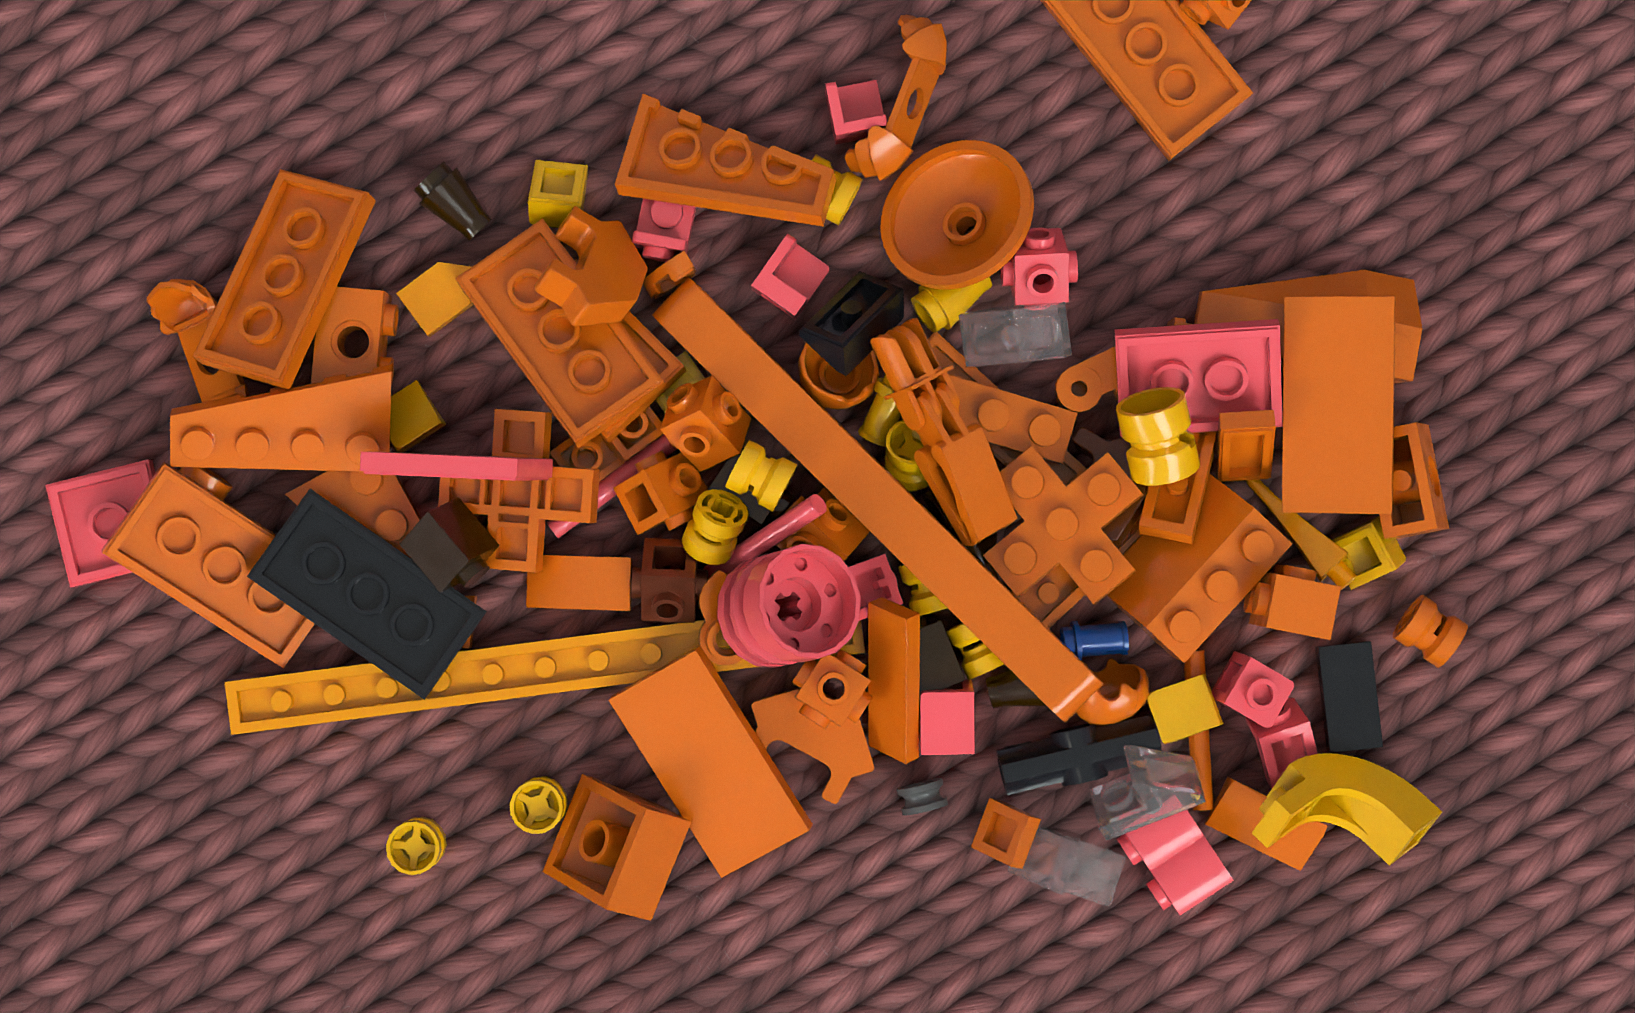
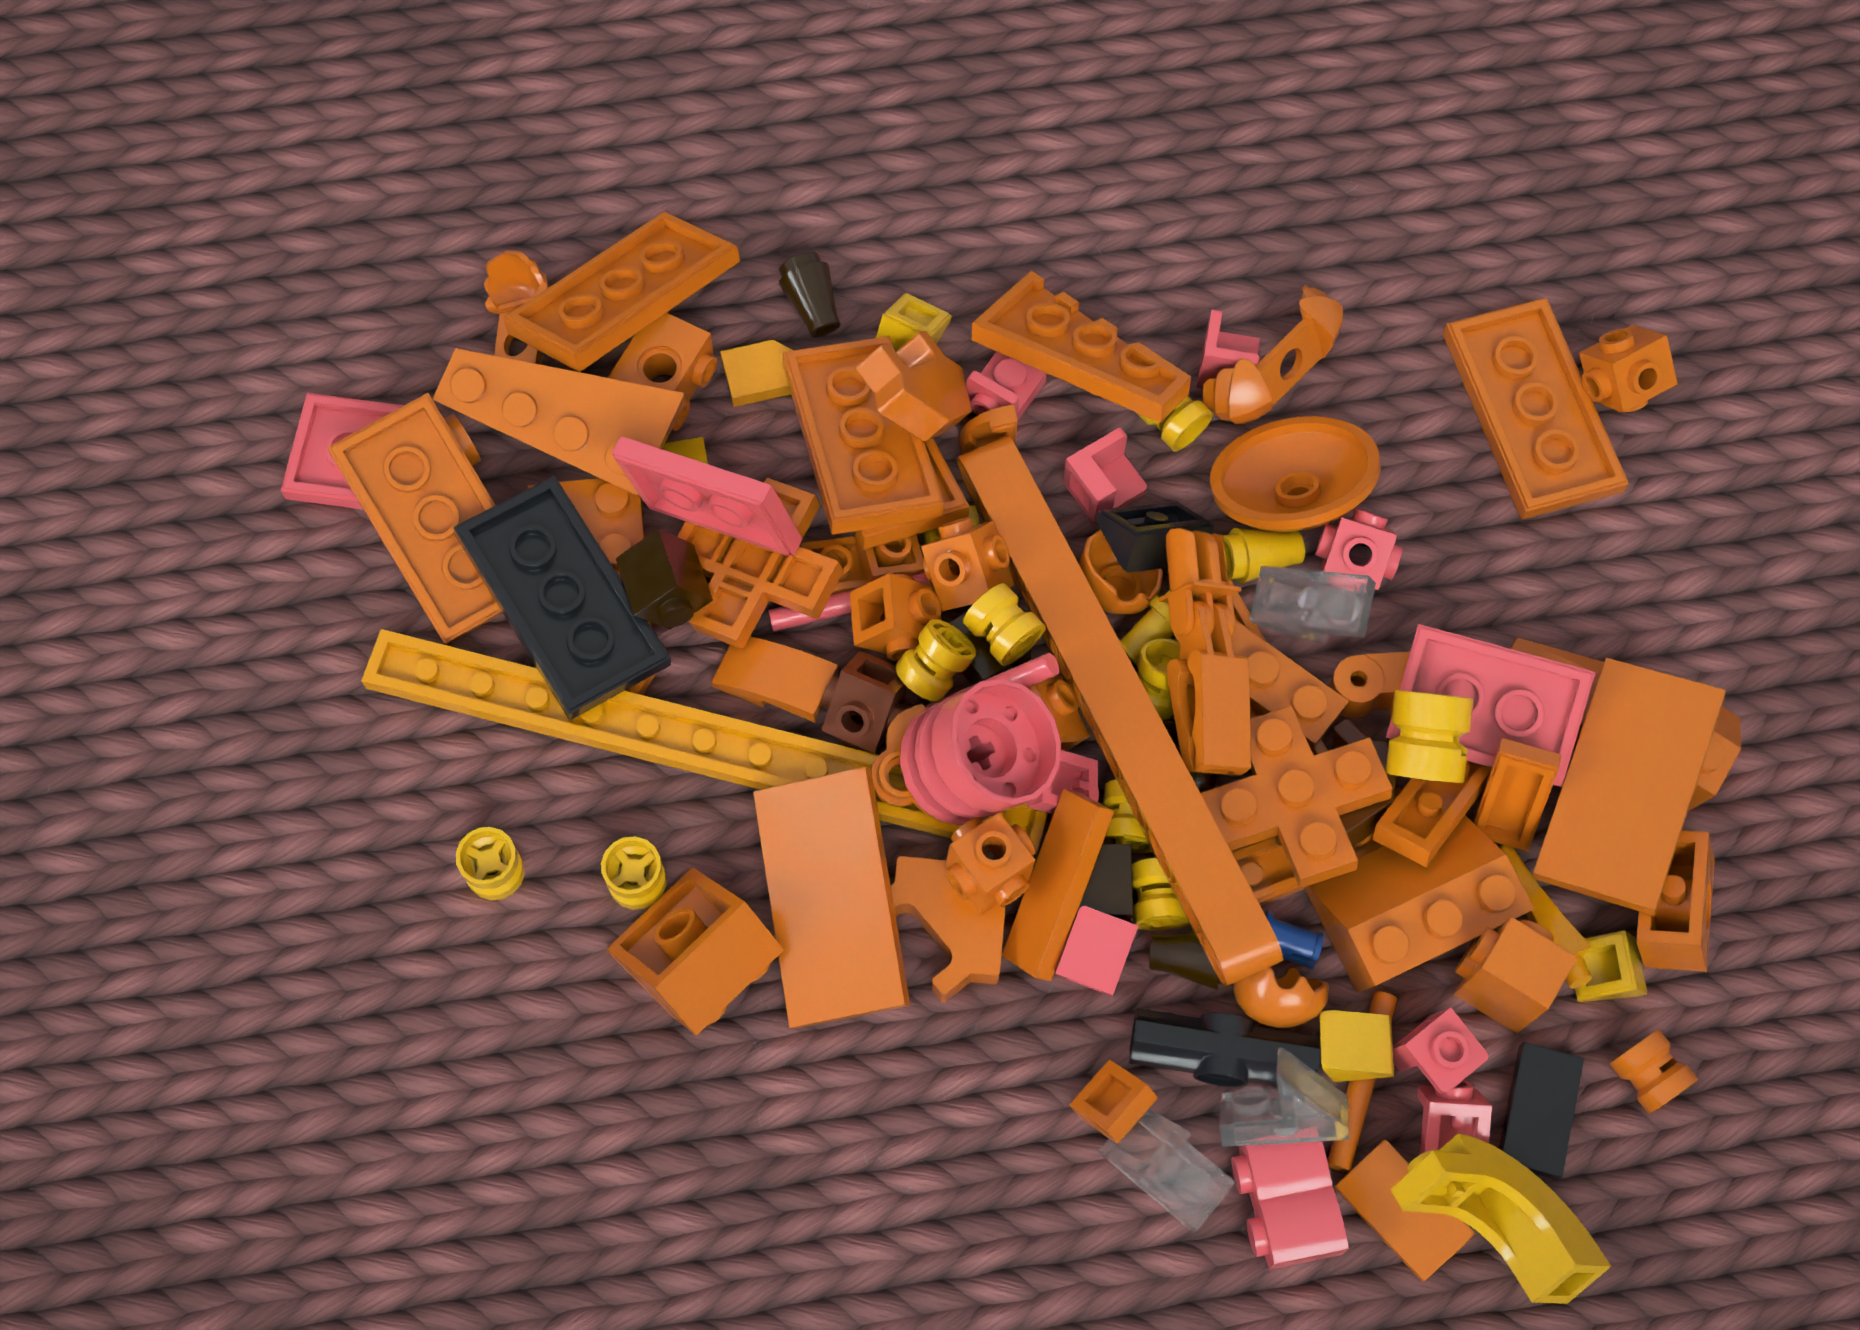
camera: 20 degrees right, 20 degrees down
(922, 796) = (1038, 1027): dark grey bush -> none

